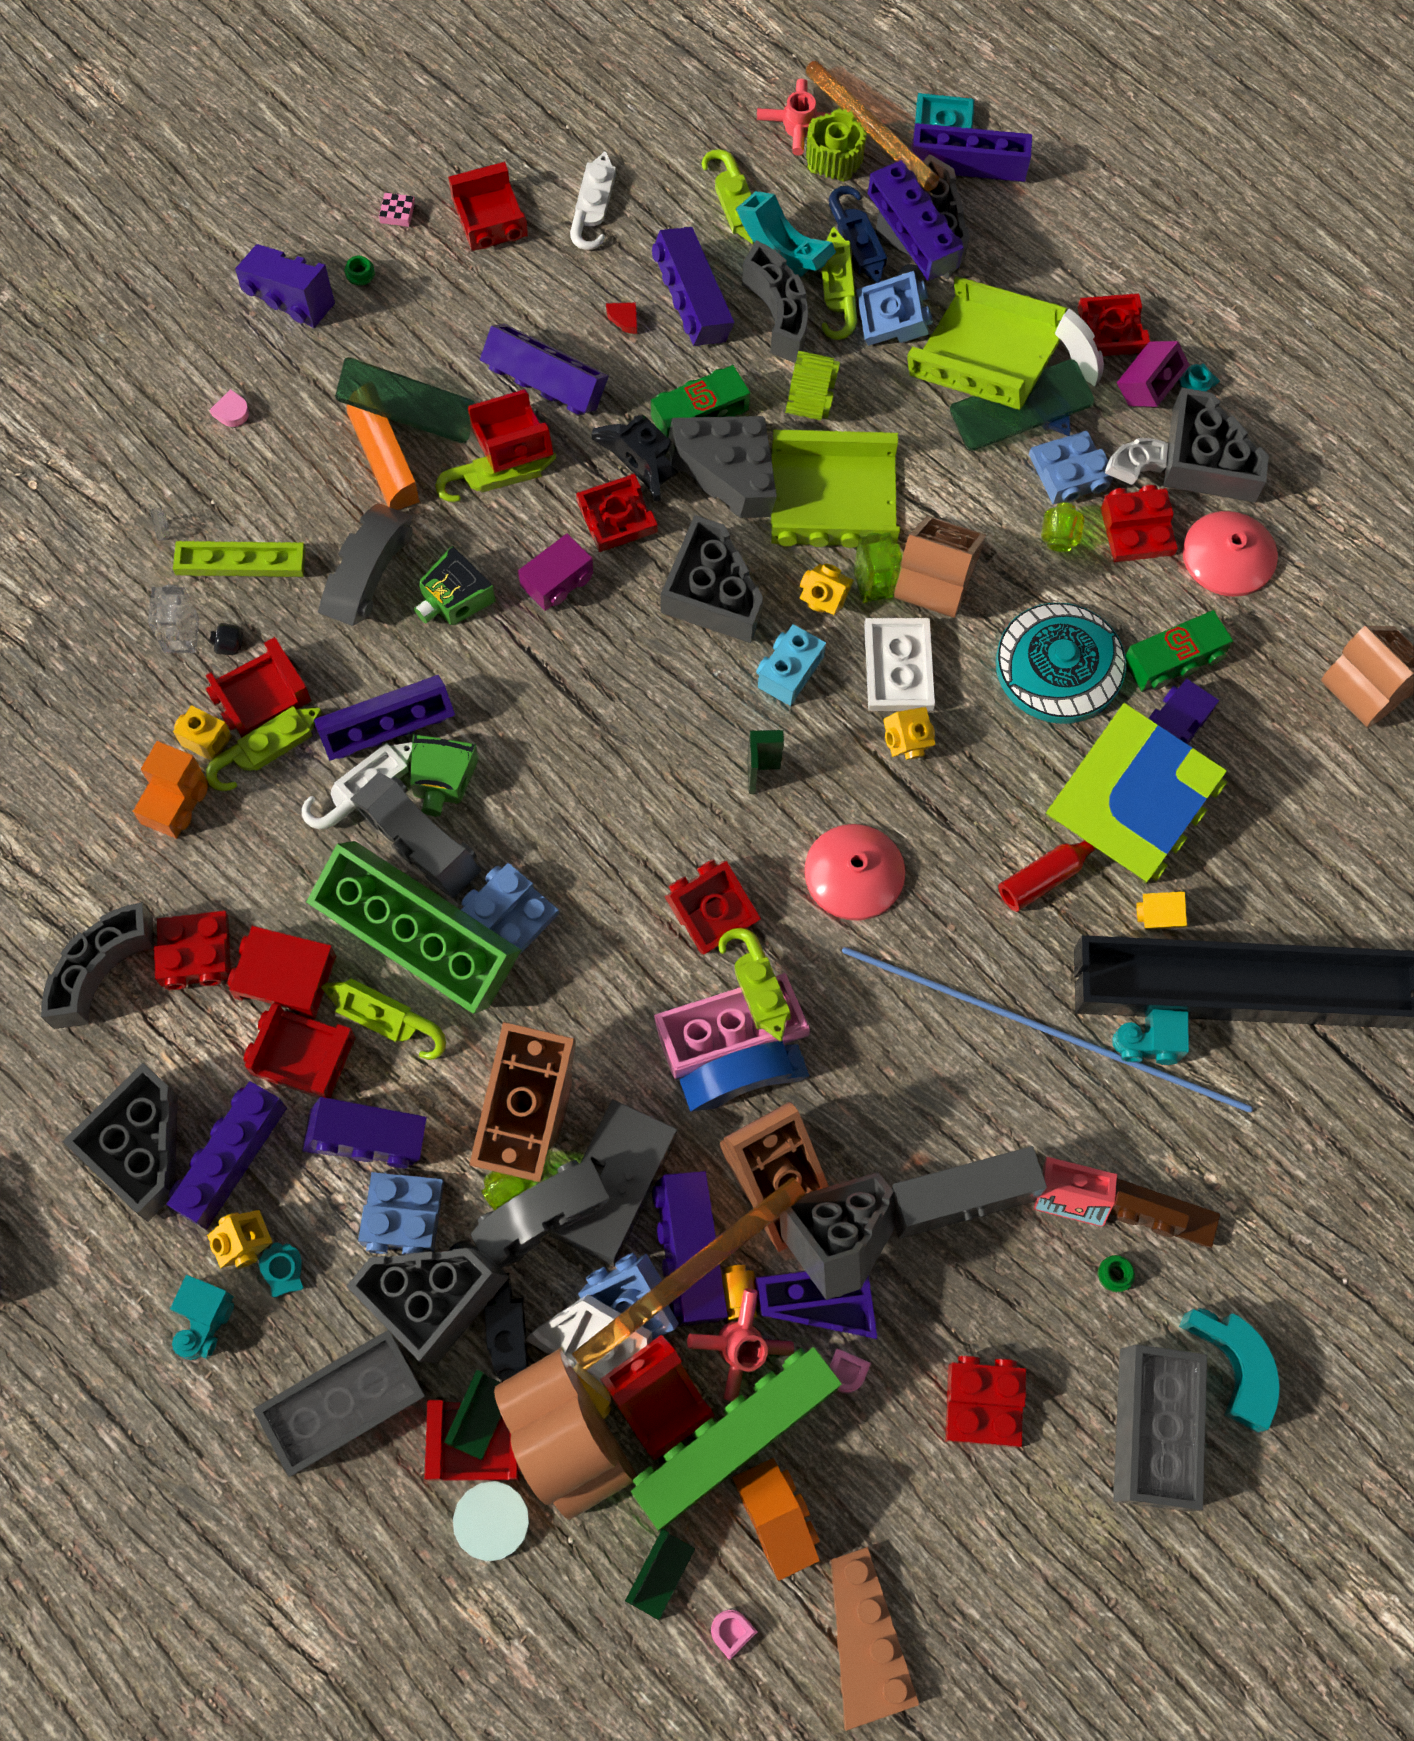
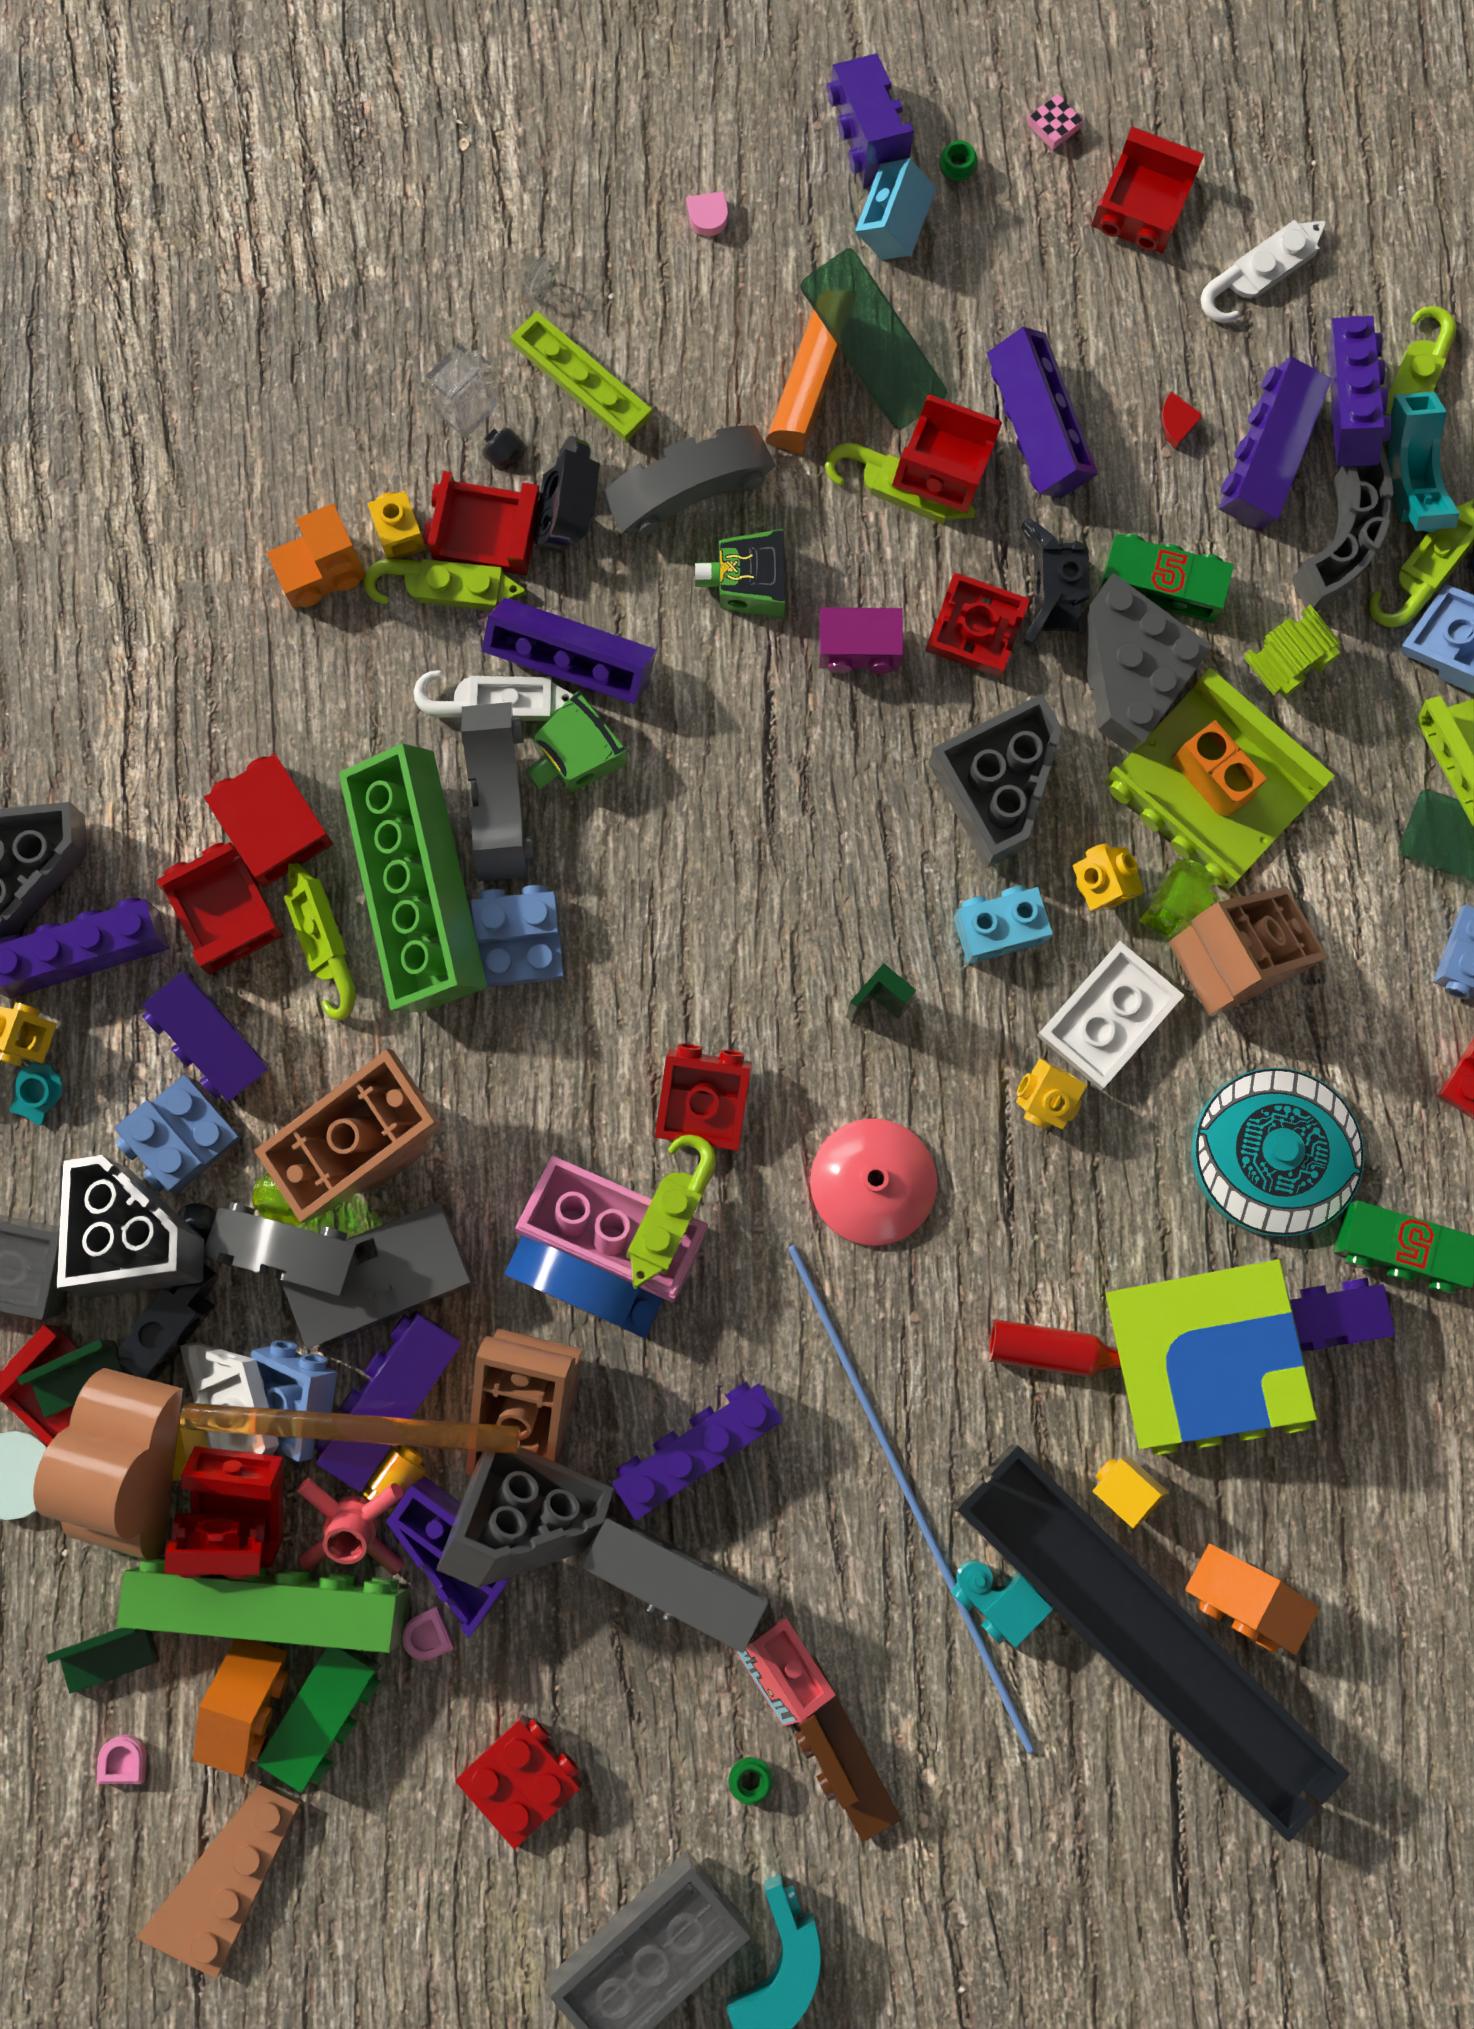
camera: 45 degrees right, 10 degrees up
(89, 959) = (113, 662): dark grey brick -> none
(192, 950) = (213, 729): red plate -> none
(298, 631) = (567, 497): none -> black piece
(349, 321) = (895, 209): none -> medium azure brick
(671, 1423) = (216, 1545): none -> red brick
(714, 221) = (1356, 391): none -> dark purple brick
(818, 489) = (1197, 771): none -> orange piece
(830, 1478) = (320, 1717): none -> green brick
(904, 1108) = (697, 1451): none -> dark purple brick
(1062, 527) = (1414, 1016): clear neon green head -> none
(1285, 906) = (1258, 1602): none -> orange brick

